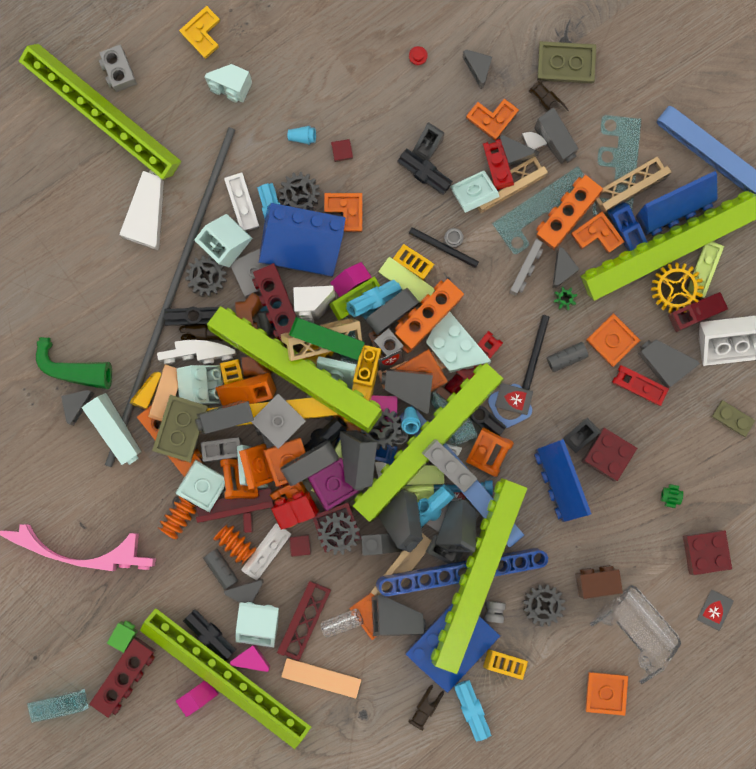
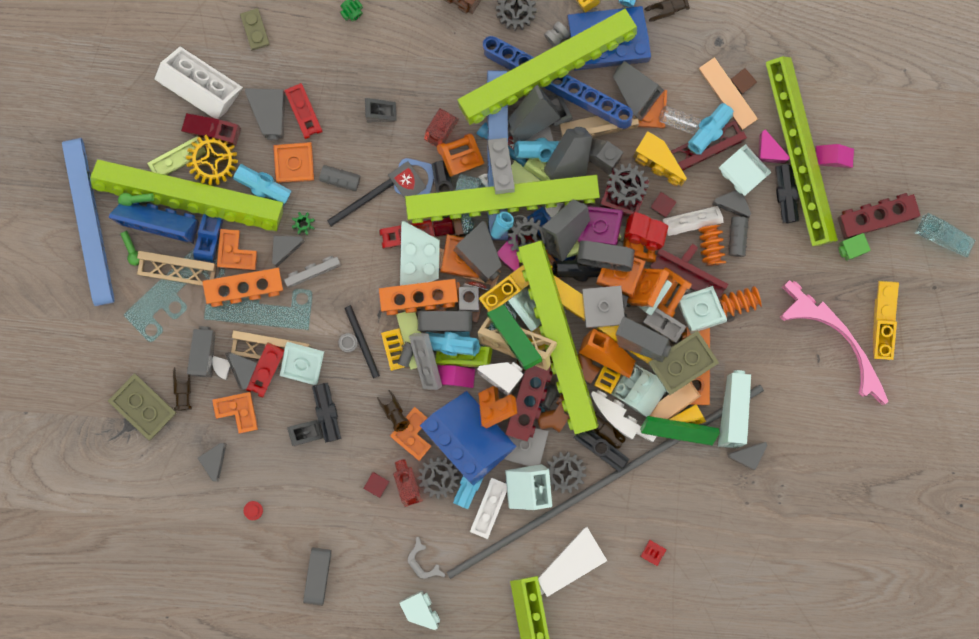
camera: 145 degrees left, 0 degrees up
(52, 597) = (885, 320): none -> yellow slope
(88, 374) = (722, 473): green animal -> none
(90, 271) = (653, 552): none -> red tile
(143, 378) = (679, 430): none -> green tile
(262, 115) = (416, 567): none -> light grey helmet
(298, 275) = (493, 409): none -> orange plate
(302, 135) = (397, 522): medium azure cone -> none
(311, 636) = (710, 128): none -> medium azure piece
(312, 163) = (409, 490): none -> clear red torso
(317, 698) = (743, 81): none -> reddish brown tile
(329, 47) = (317, 576): none -> dark grey beam
(336, 579) = (656, 155): none -> yellow slope
(373, 212) = (394, 413): none -> dark brown piece
(382, 270) = (425, 361): none -> light grey plate
(401, 264) = (406, 355): none -> dark grey pin
(523, 461) = (440, 127): none -> clear red torso
(562, 481) = (425, 86): blue slope -> none
(609, 454) = (372, 78): dark red brick -> none
(622, 301) = (261, 184): none -> medium azure piece
(679, 172) = (133, 254): none -> bright green bar
(713, 201) = (127, 199): none -> bright green bar

